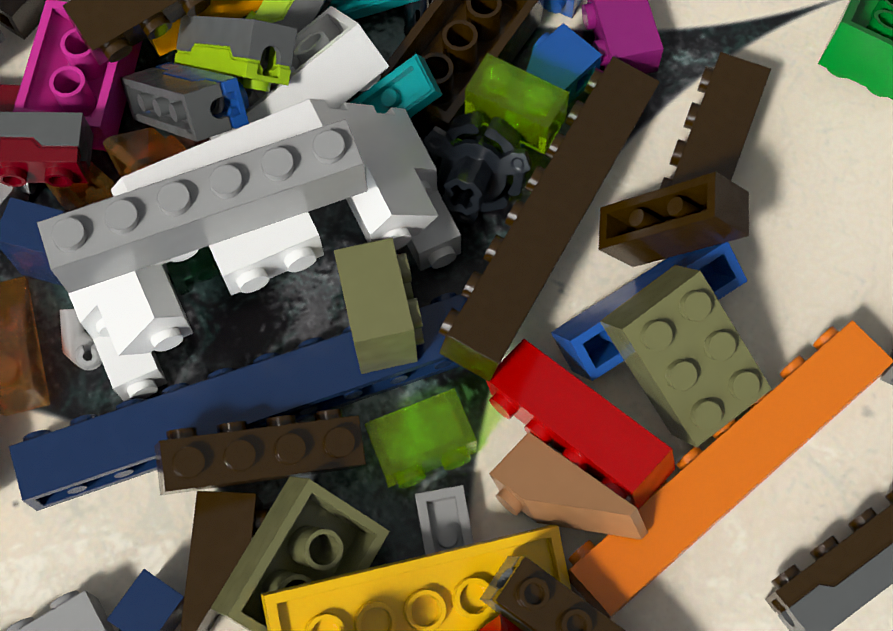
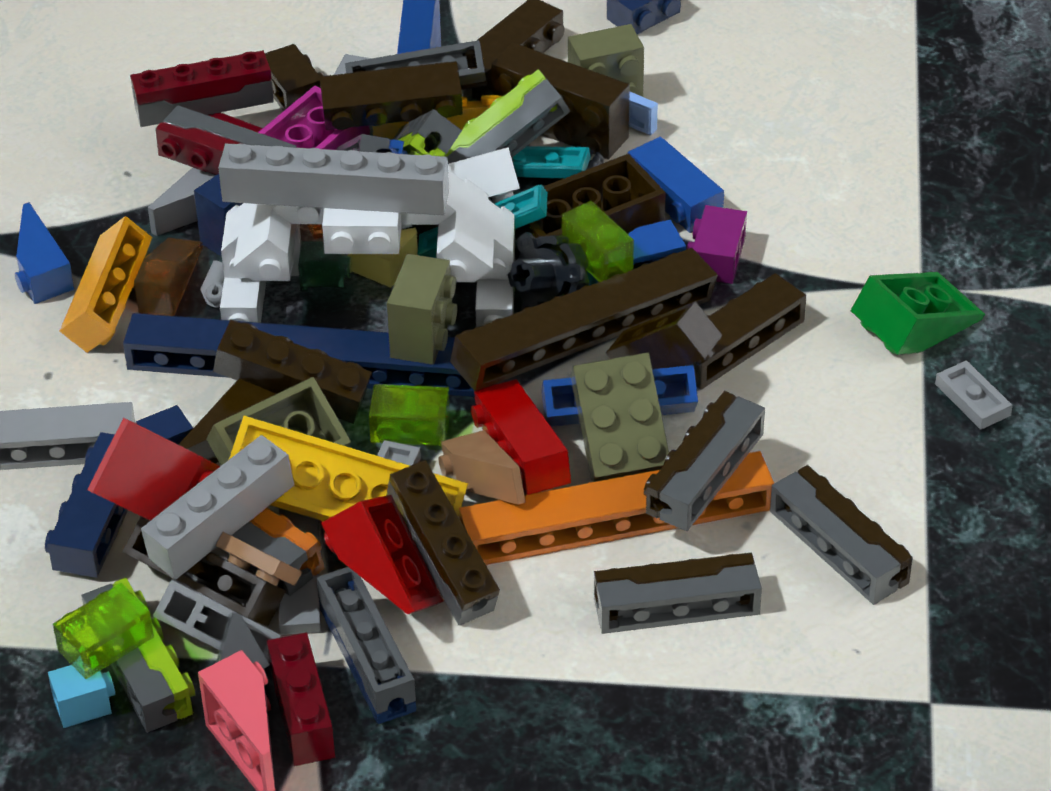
camera: 25 degrees right, 25 degrees down
(818, 377) = (704, 460): none -> dark grey piece

